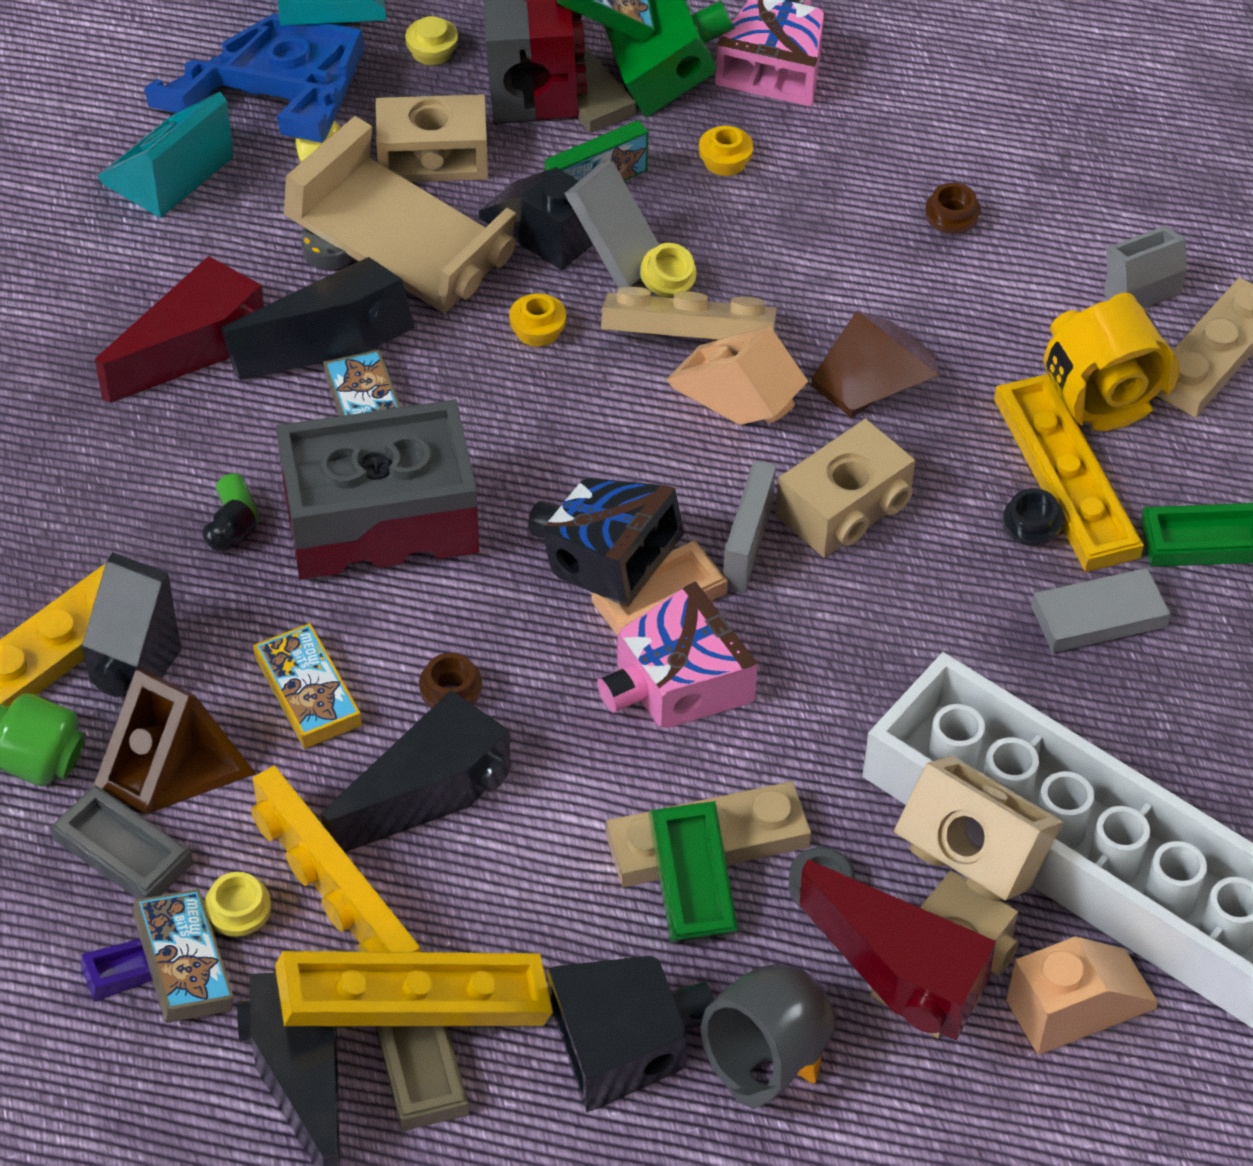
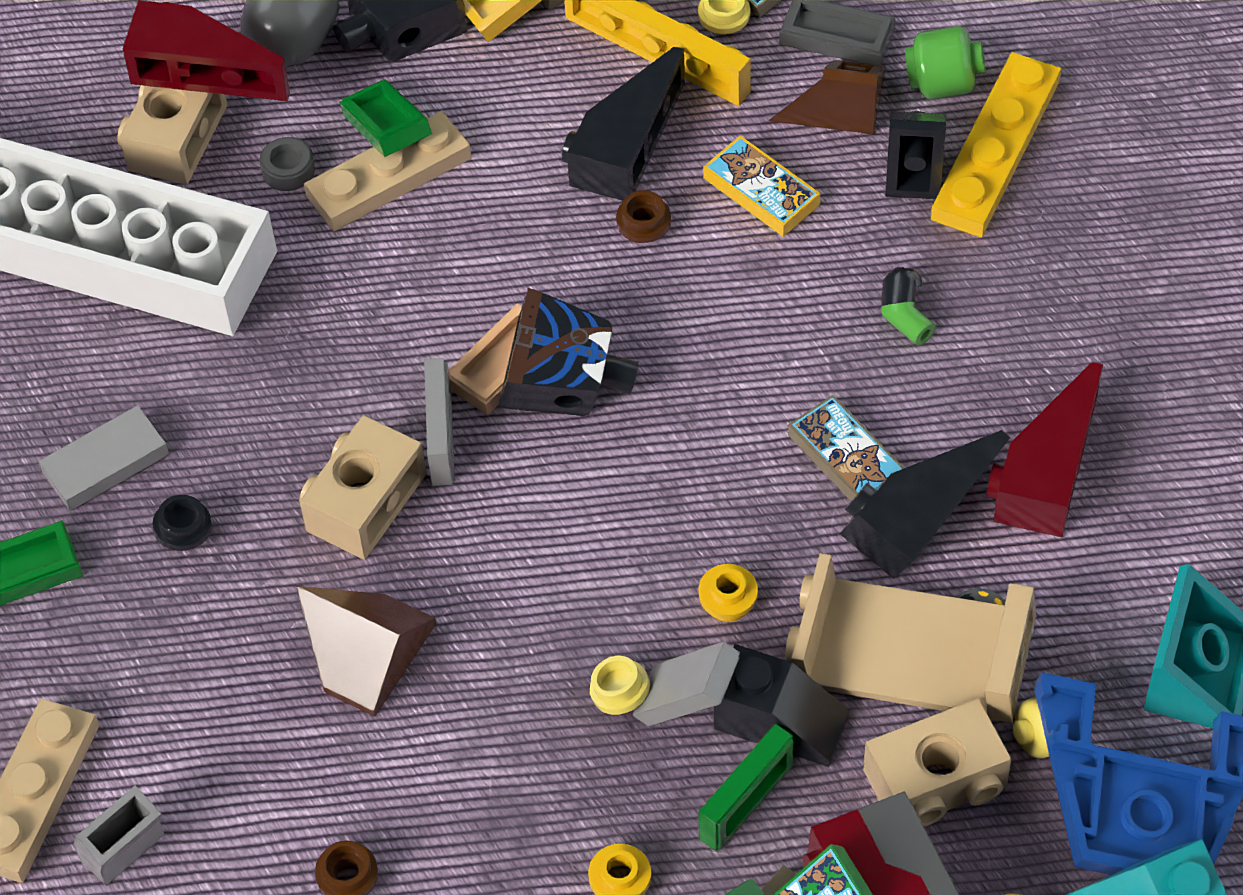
camera: 165 degrees right, 5 degrees up
(378, 487) = (776, 318): dark grey piece -> none
(680, 662) = (455, 280): bright pink torso -> none
(684, 315) = (576, 631): tan plate -> none
(741, 377) = (503, 571): light nougat slope -> none
(1014, 828) = (157, 151): tan brick -> none
(1069, 471) = (162, 596): yellow tile -> none
(1075, 992) = (70, 115): light nougat slope -> none
(1109, 362) = (132, 669): yellow brick -> none

